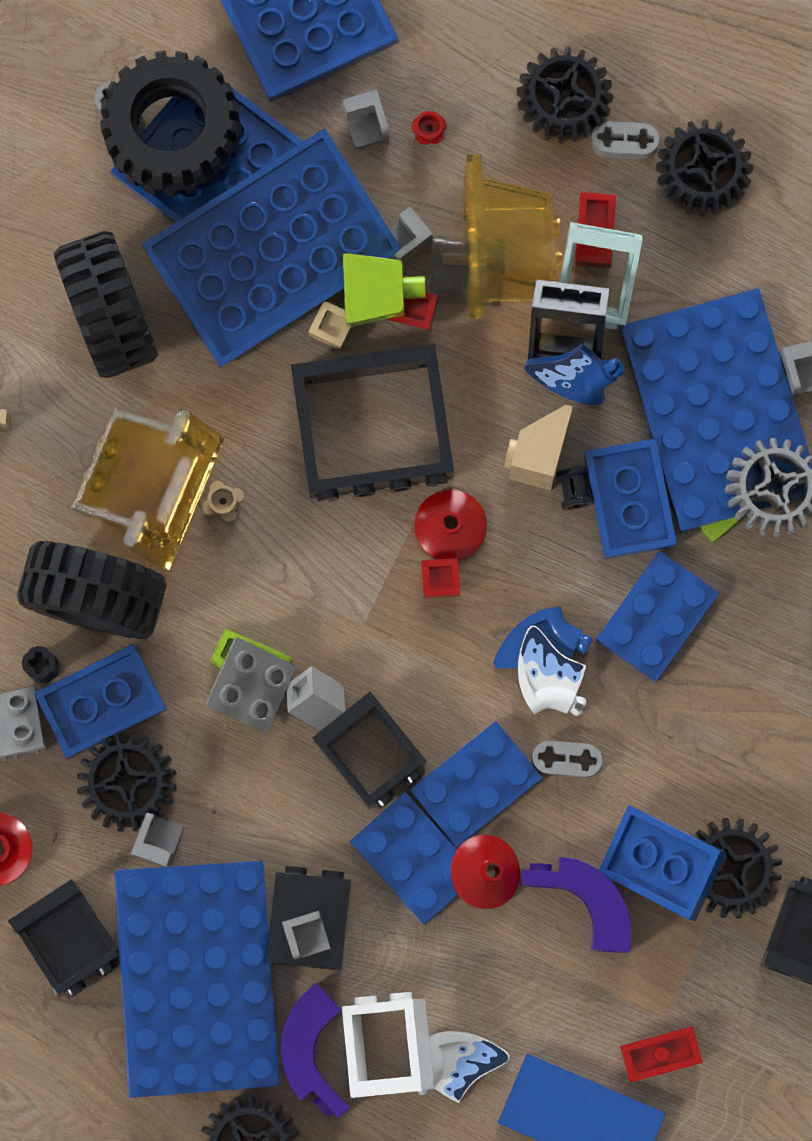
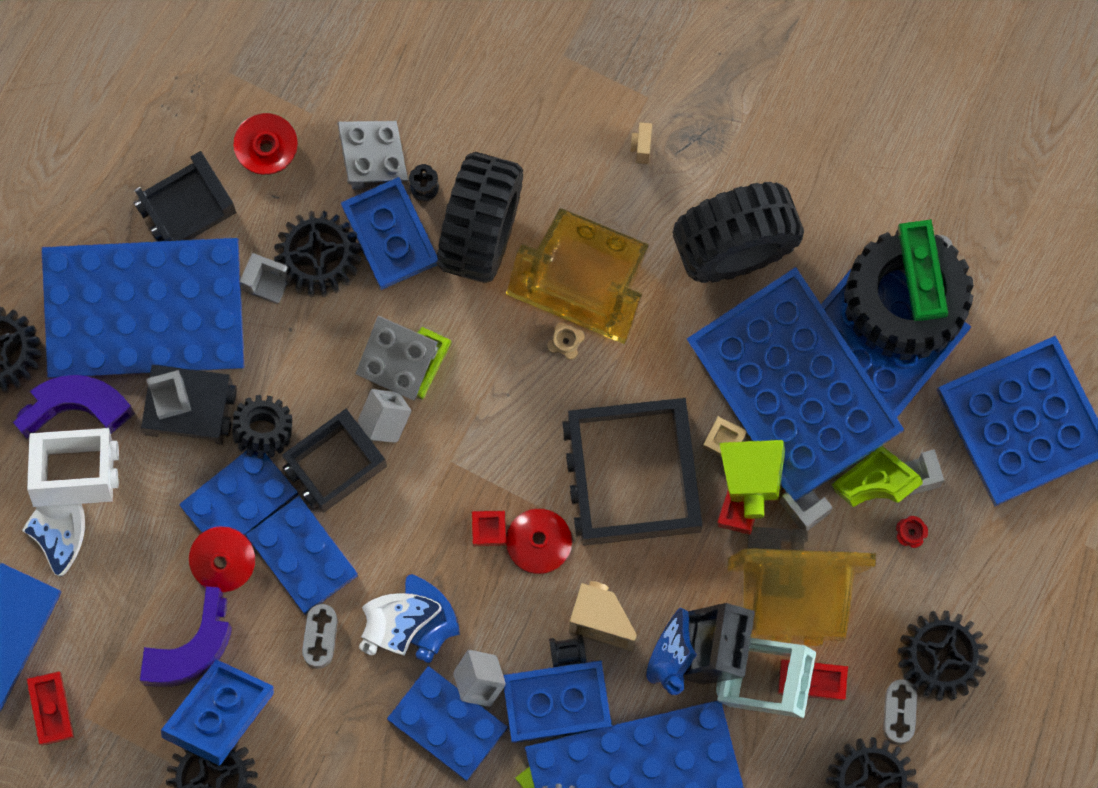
camera: 90 degrees right, 5 degrees down
(151, 101) = (922, 270): none -> green tile
(316, 823) = (262, 411): none -> black tyre
(373, 159) = (877, 477): none -> lime tile
(608, 582) = (479, 678): none -> light grey panel

